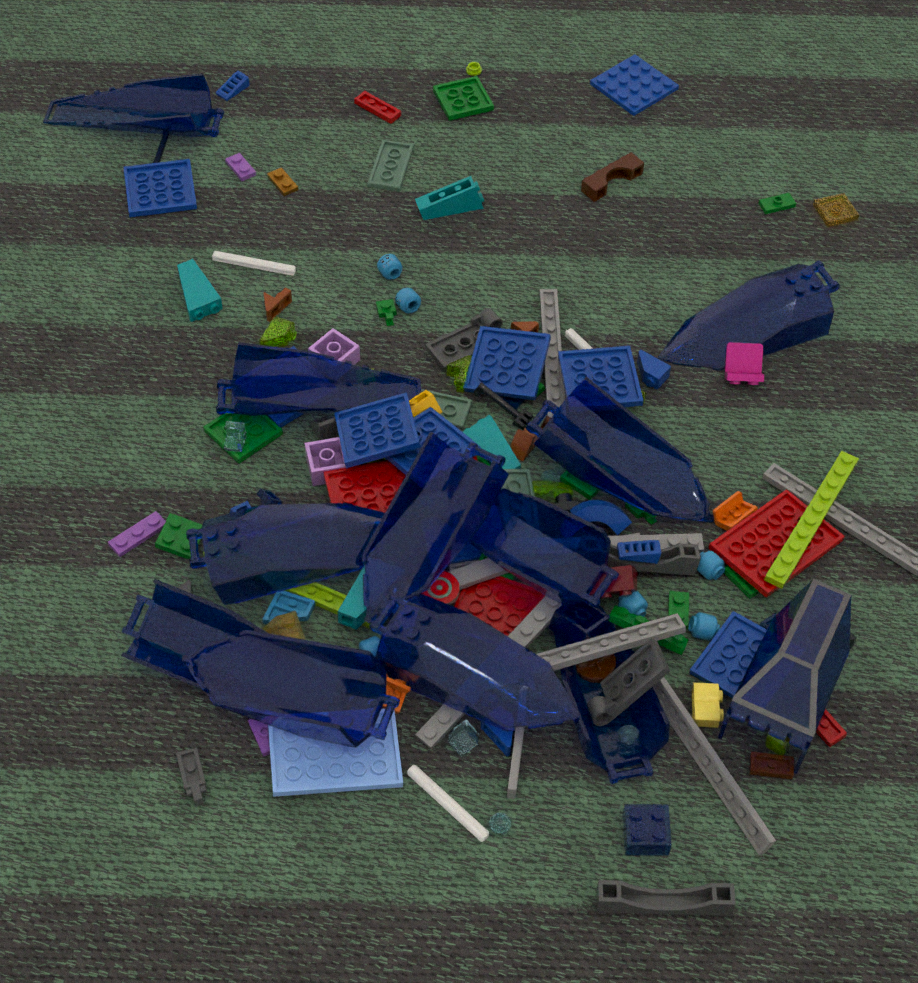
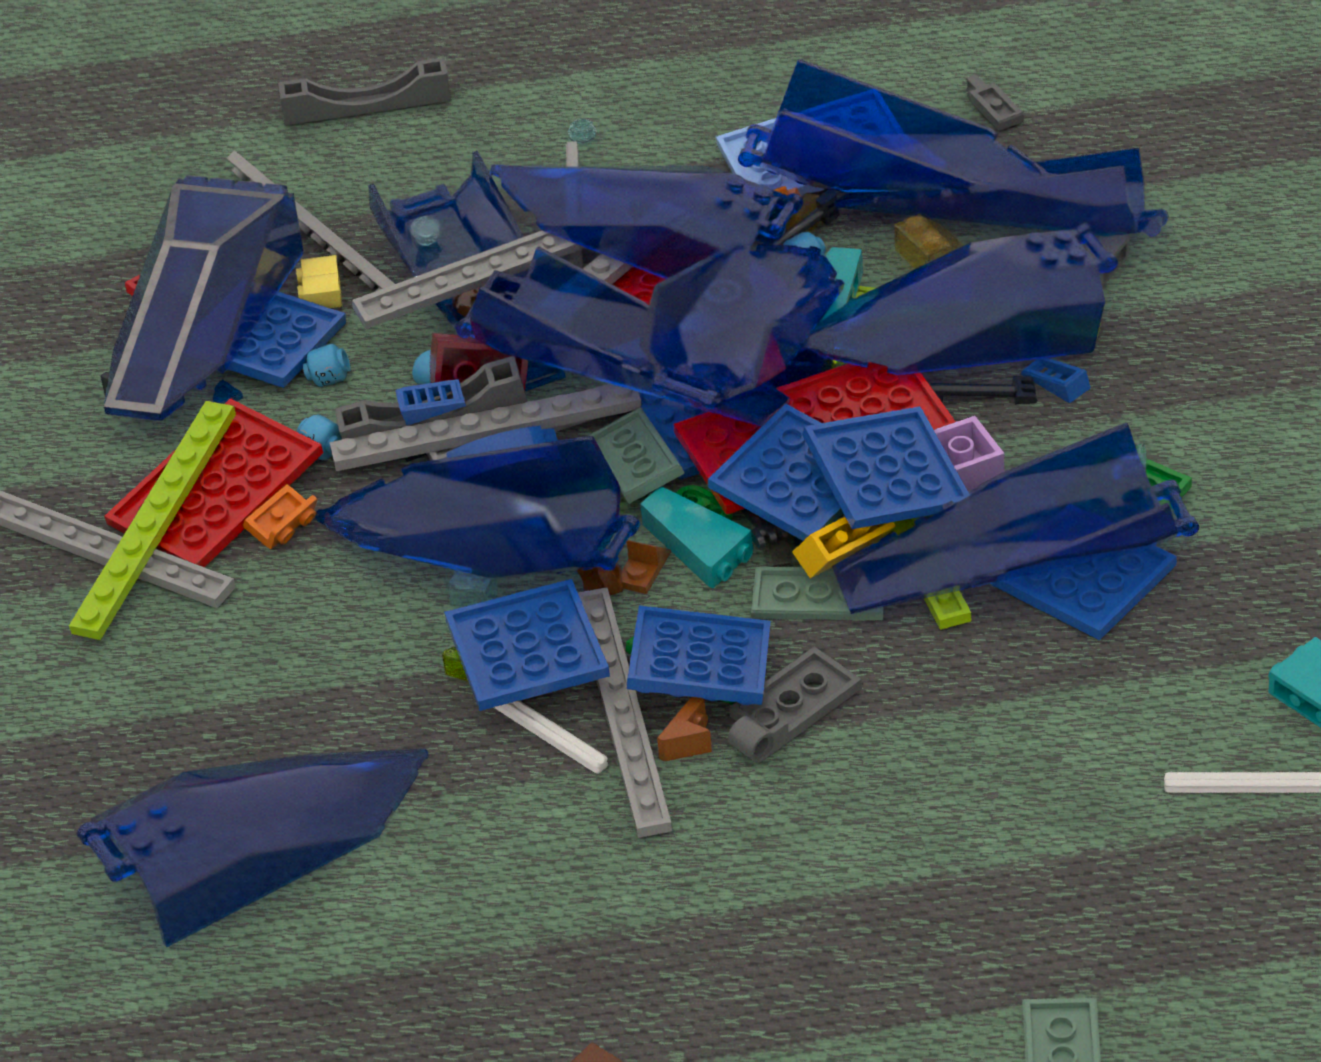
camera: 175 degrees right, 10 degrees down
(137, 534) = (1215, 333): medium lavender plate -> none
(173, 536) = (1147, 336): green plate -> none
(268, 497) = (1033, 403): clear blue plate -> none
(275, 305) = (1170, 698): dark orange slope -> none
(278, 333) = (1136, 647): clear neon green slope -> none
(282, 181) = (1280, 971): pearl gold plate -> none
(337, 346) = (1018, 621): lavender brick -> none
(386, 309) = (956, 742): green plate -> none
(389, 266) = (978, 810): dark azure head -> none
(408, 300) = (920, 754): dark azure head -> none
(448, 803) = (654, 139): white axle -> none
(451, 199) = (897, 969): teal slope -> none
(459, 370) = (782, 644): clear neon green slope -> none
(521, 419) = (662, 597): black hinge -> none
(617, 685) = (425, 242): dark grey hinge -> none
(624, 619) = (393, 342): green plate -> none
(646, 829) = (393, 147): clear blue brick -> none
(652, 370) = (433, 712): blue slope -> none
(679, 604) = (366, 383): green plate -> none
(744, 363) = (265, 733): dark pink bracket -> none

